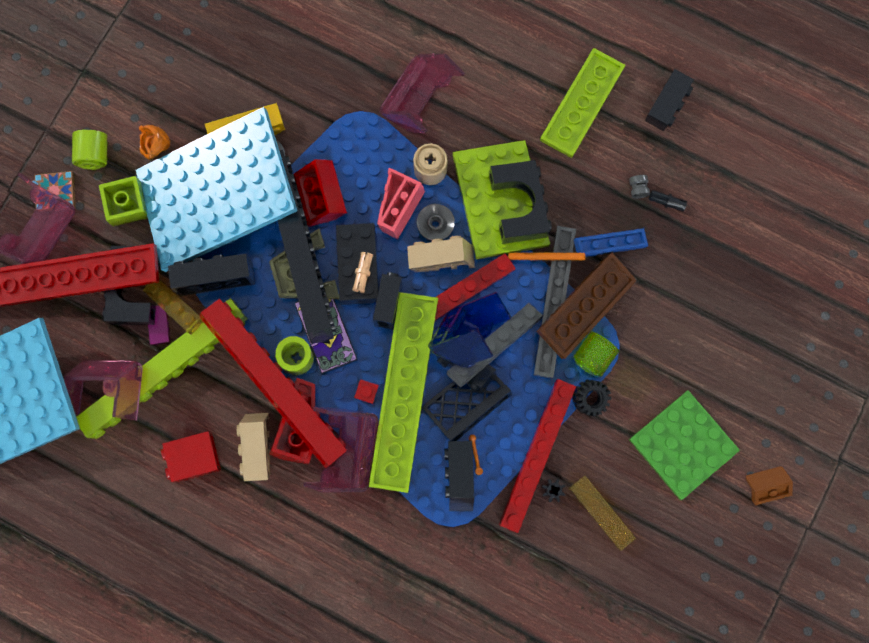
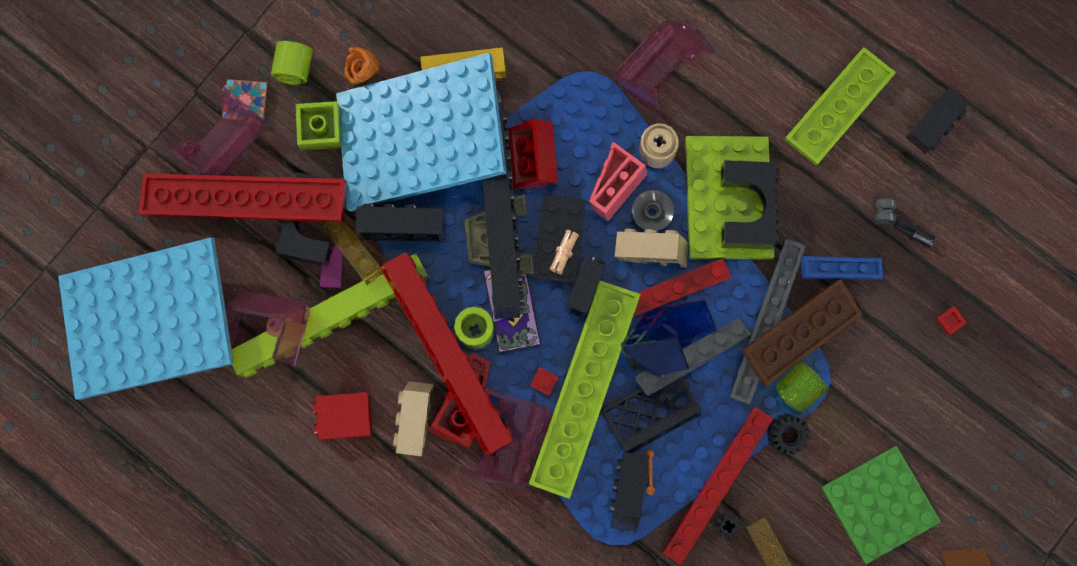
camera: 15 degrees right, 0 degrees up
(546, 256) = (768, 270): orange bar -> none
(714, 271) = (951, 320): none -> red plate

